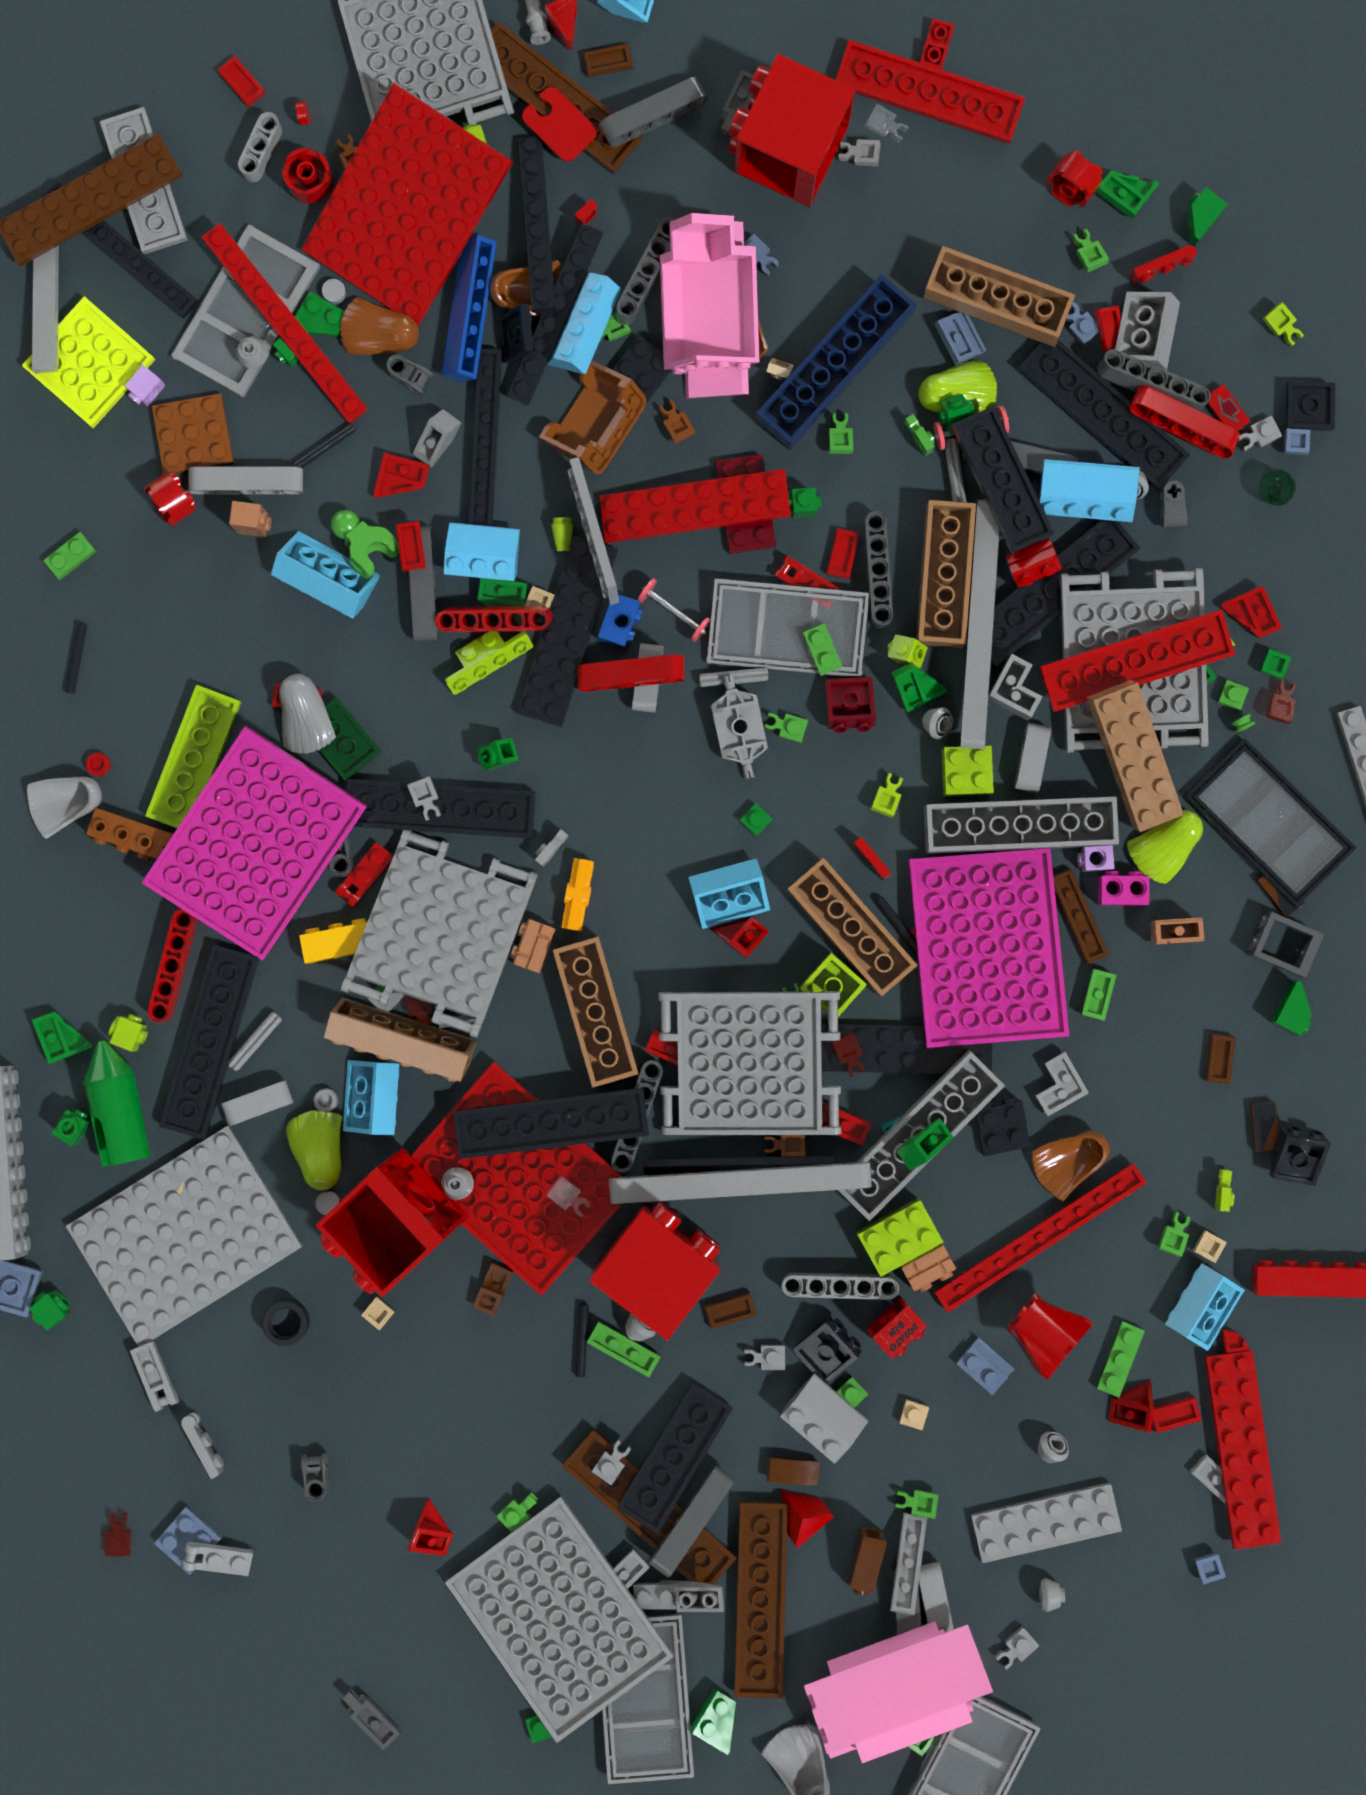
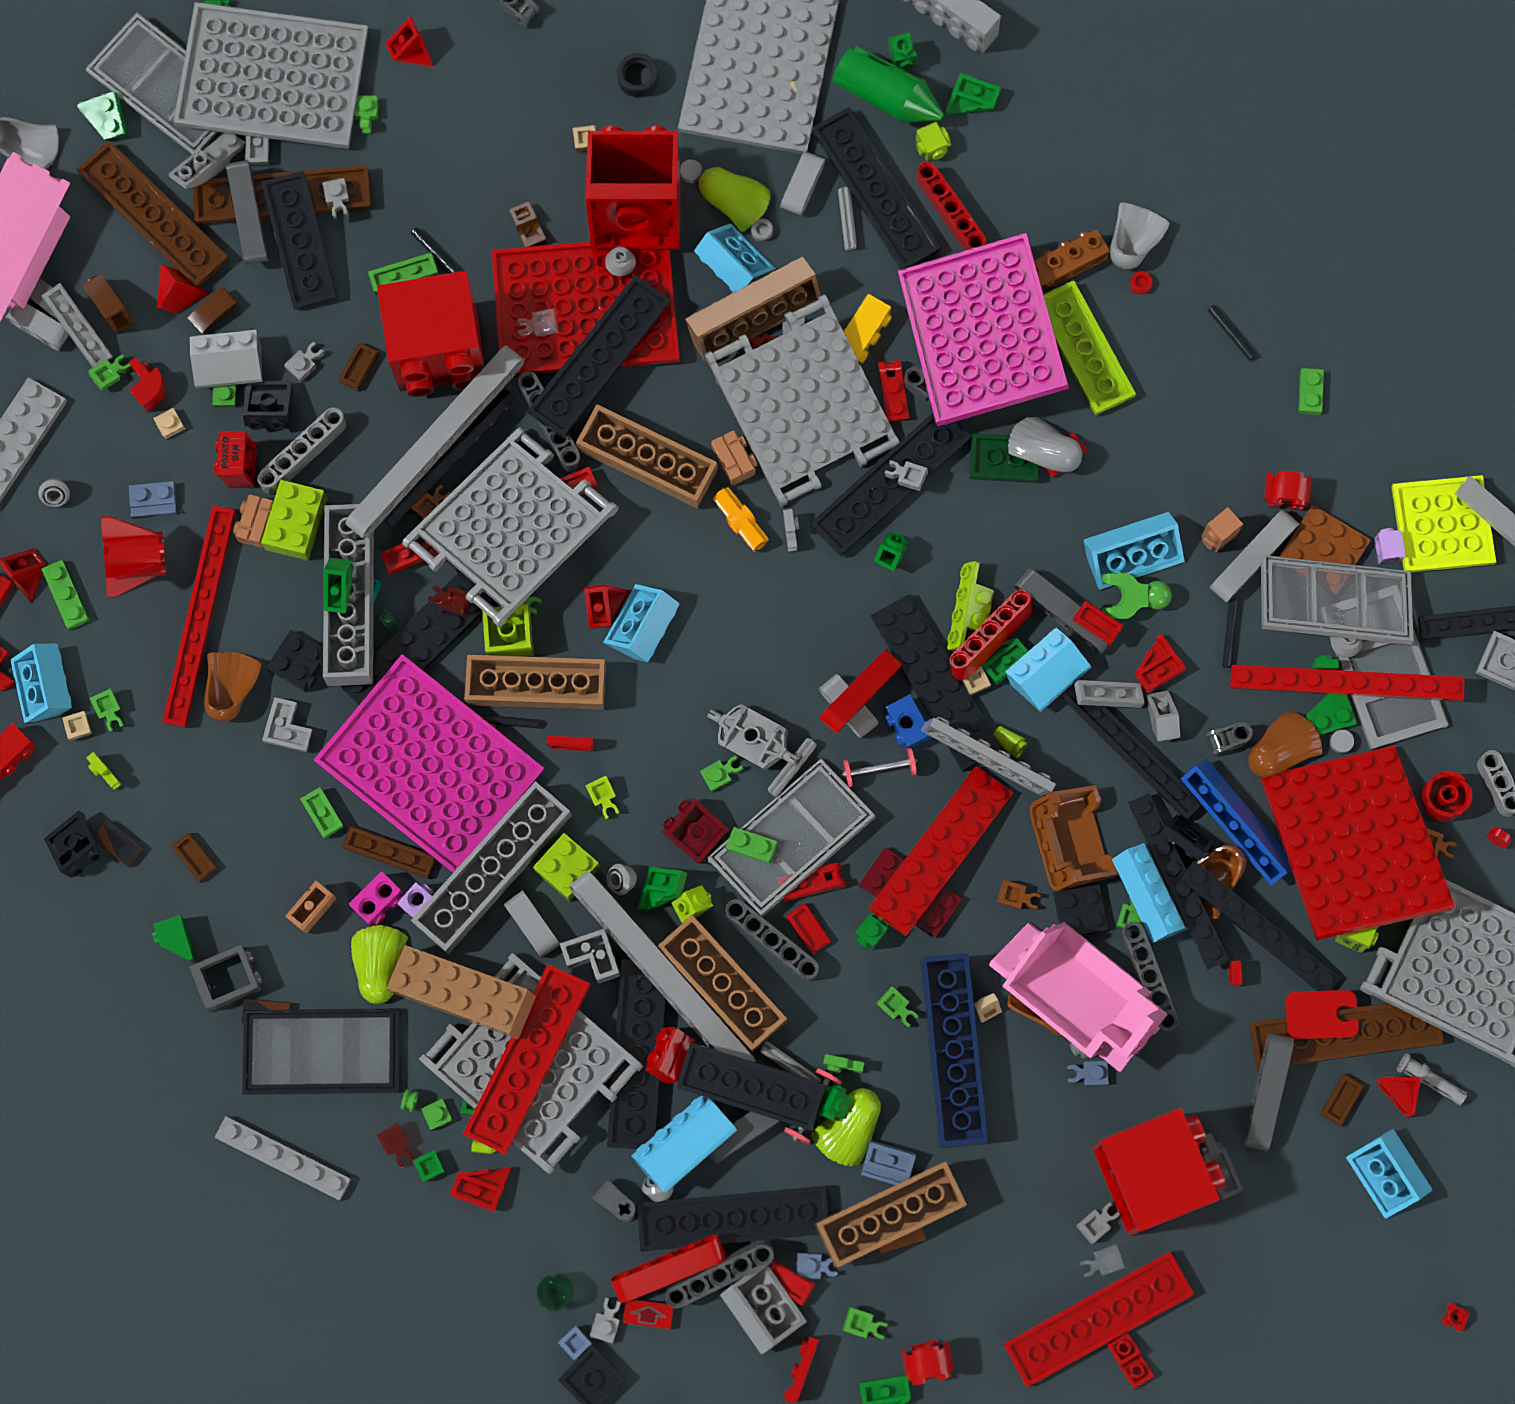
camera: 135 degrees right, 10 degrees down
(227, 384) = (1336, 600): none -> clear door
(458, 490) = (1109, 693): none -> light grey plate
(756, 820) = (675, 690): green plate -> none
(900, 1455) = (151, 388): none -> red brick
(908, 1089) = (387, 619): none -> clear green bush

